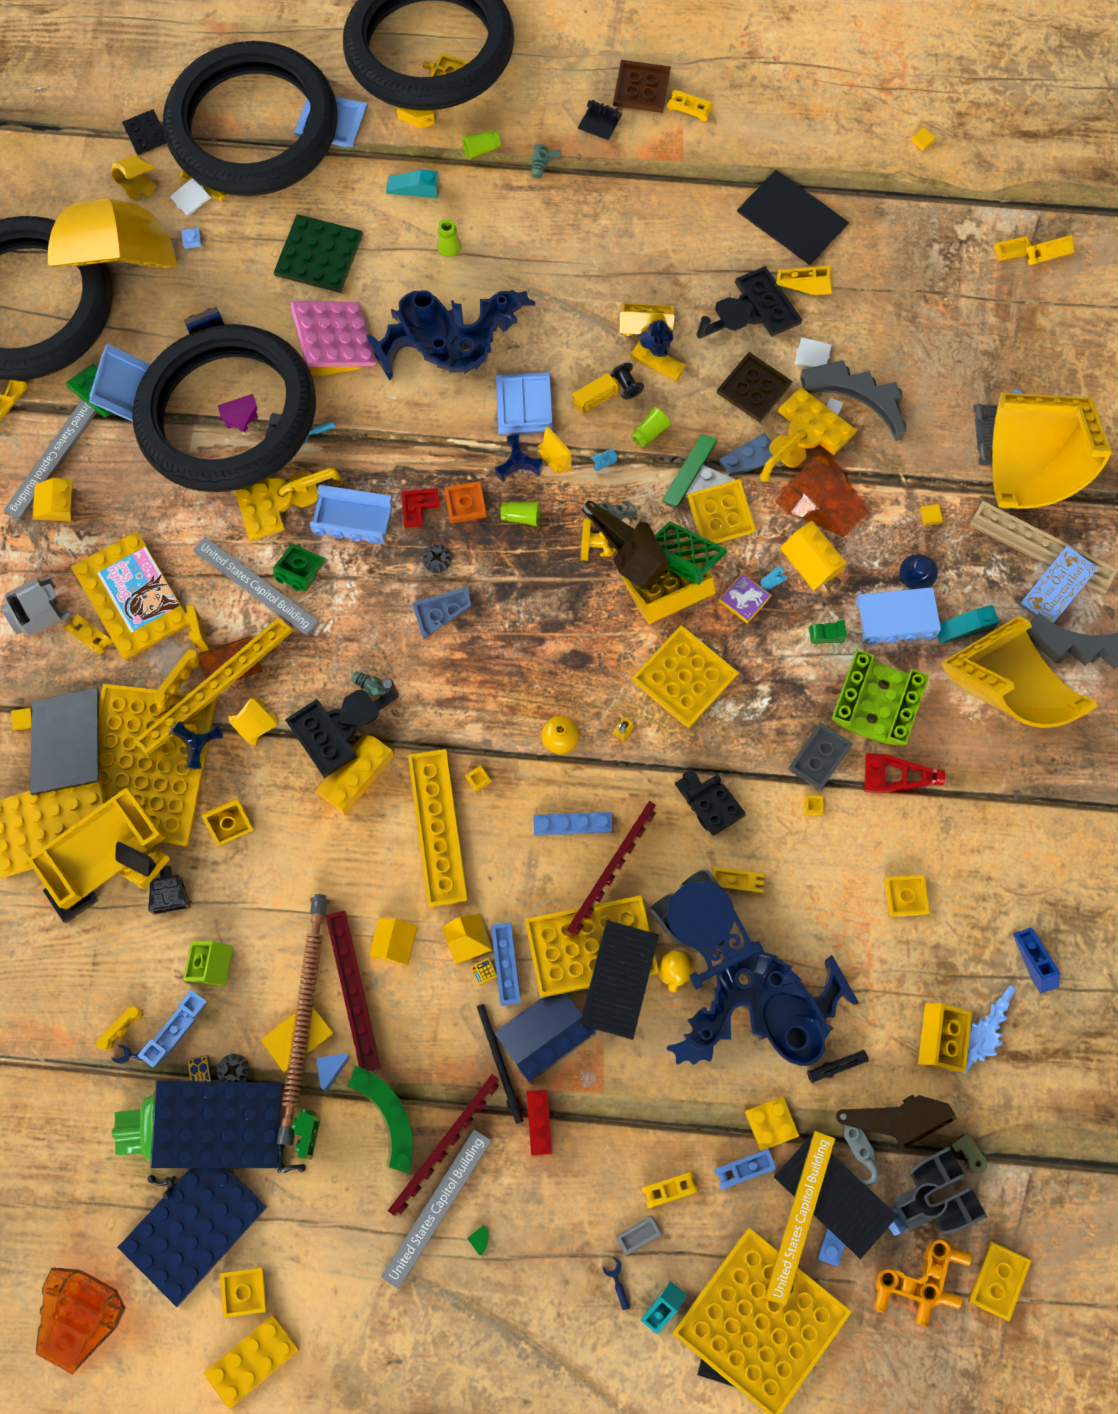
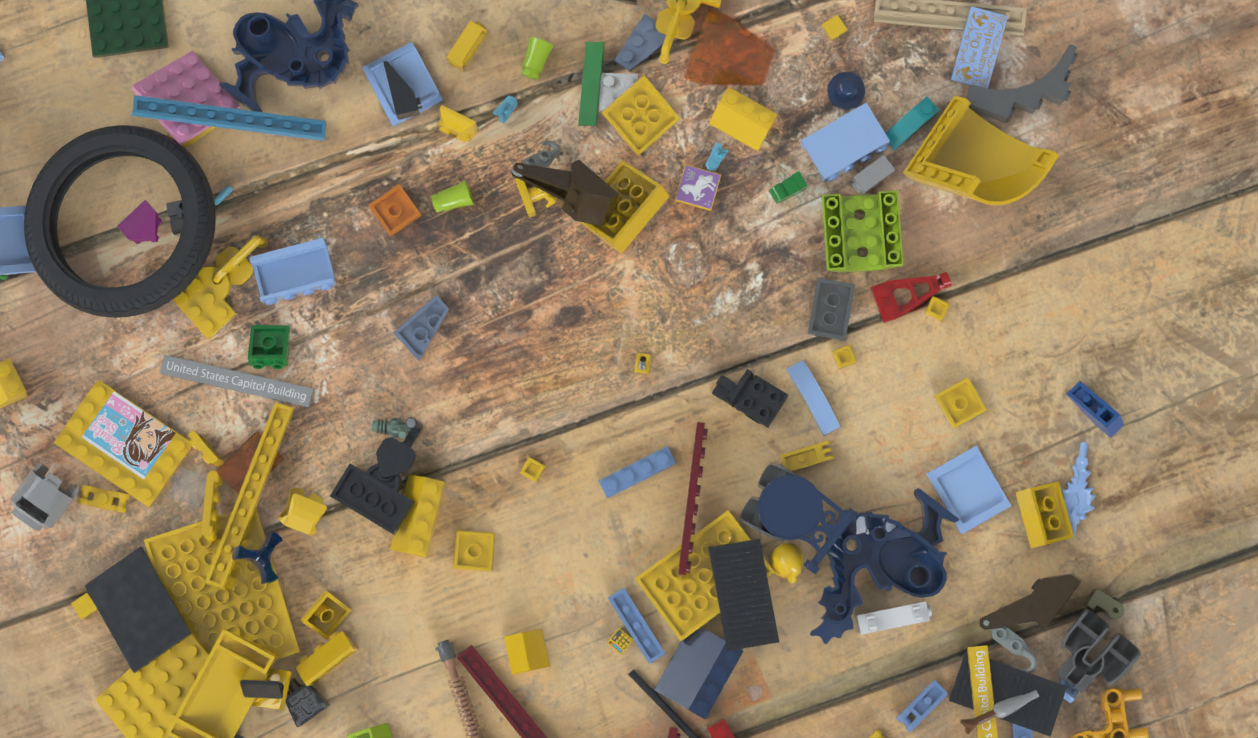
camera: 25 degrees left, 10 degrees up
(206, 319) = (55, 137): dark blue slope -> none
(207, 862) = (326, 658): none -> yellow slope
(359, 362) = (228, 118): none -> dark azure plate
(389, 827) = (474, 551): none -> yellow tile
(414, 502) = (346, 232): red plate -> none
(436, 566) = (397, 285): dark grey gear -> none
(437, 828) = (517, 532): yellow plate -> none
(467, 938) = (591, 618): yellow slope -> none
(517, 460) = (425, 146): clear blue piece -> none
(518, 410) = (403, 96): none -> black slope
(561, 742) = (590, 404): yellow cylinder -> none
(628, 383) = (490, 18): black hose -> none
(684, 676) = (676, 289): yellow plate -> none
(688, 567) = (632, 186): green fence -> none
(754, 1069) = (893, 618): none -> white brick
(768, 830) = (813, 397): none -> light blue slope
(771, 1123) = (928, 656): yellow plate -> none
(815, 1074) = (963, 581): black pin -> none
(821, 1208) = (1000, 710): none -> light grey piece
(880, 981) = (968, 489): none -> light blue piece
(911, 654) = (872, 175): none -> light grey brick
(921, 800) = (937, 308): none -> yellow tile
(999, 1281) = (1172, 698): yellow tile -> none

